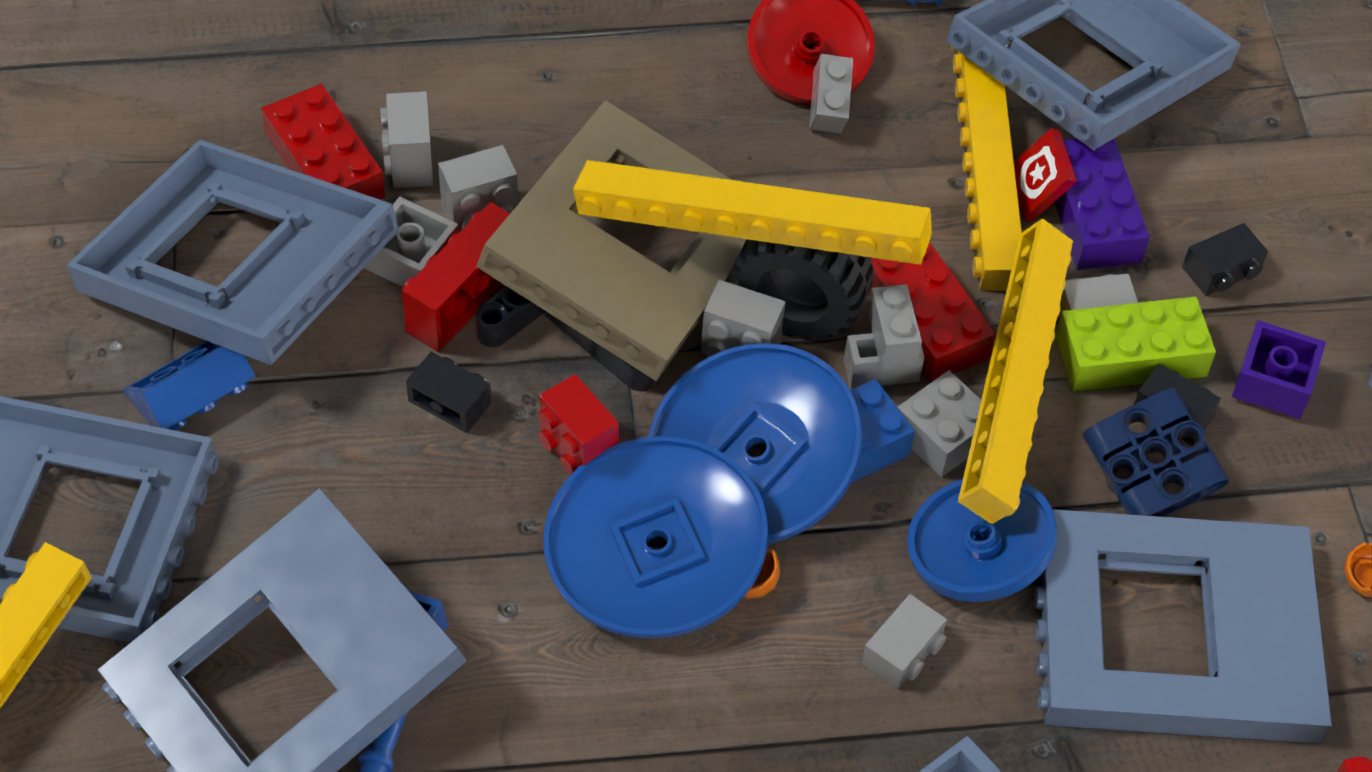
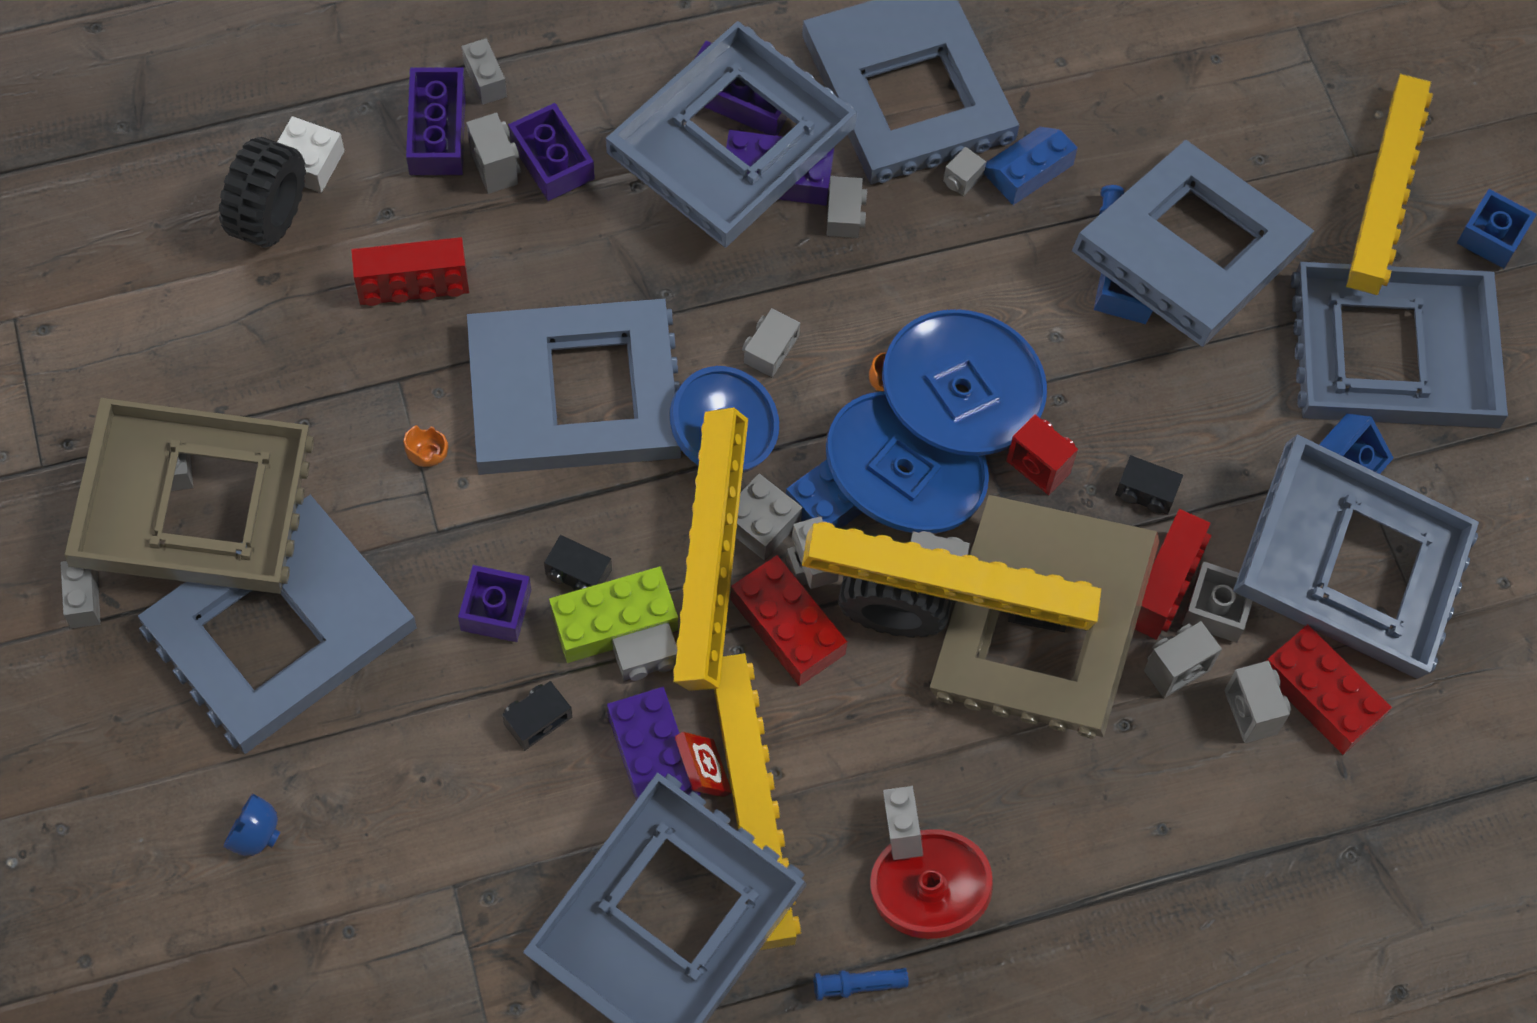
camera: 170 degrees right, 10 degrees up
(1166, 423) = (595, 503): dark blue connector -> none

